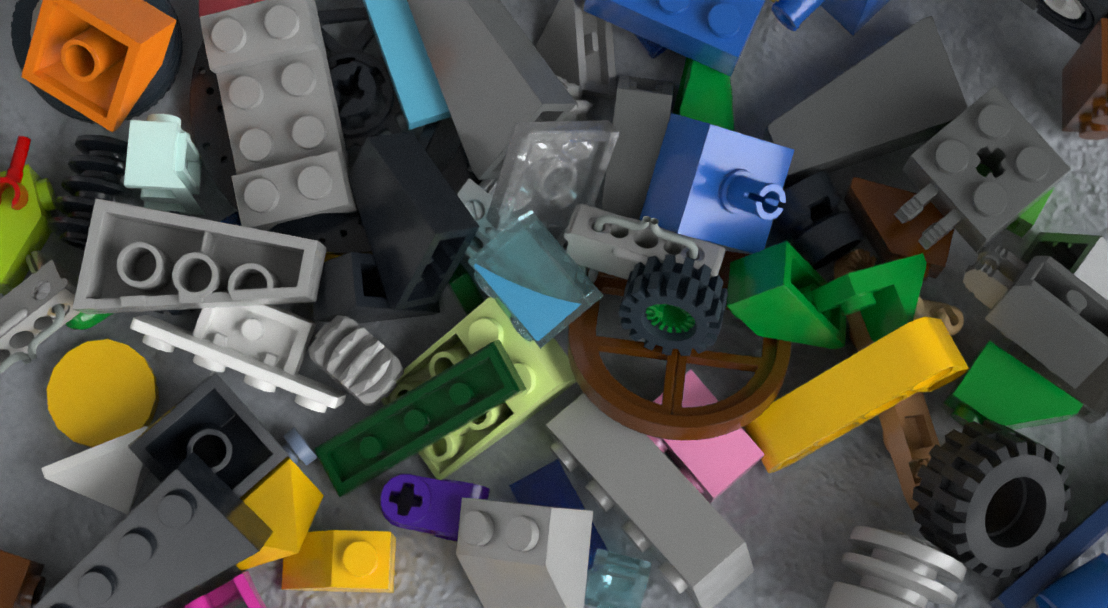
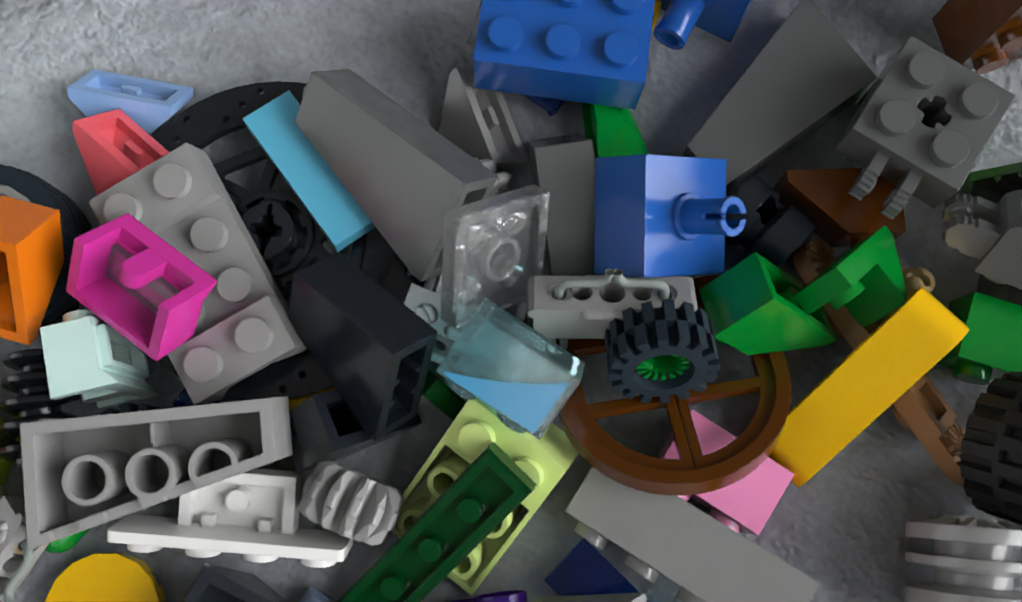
camera: 15 degrees left, 0 degrees up
(227, 108) = (138, 284): none -> dark pink window

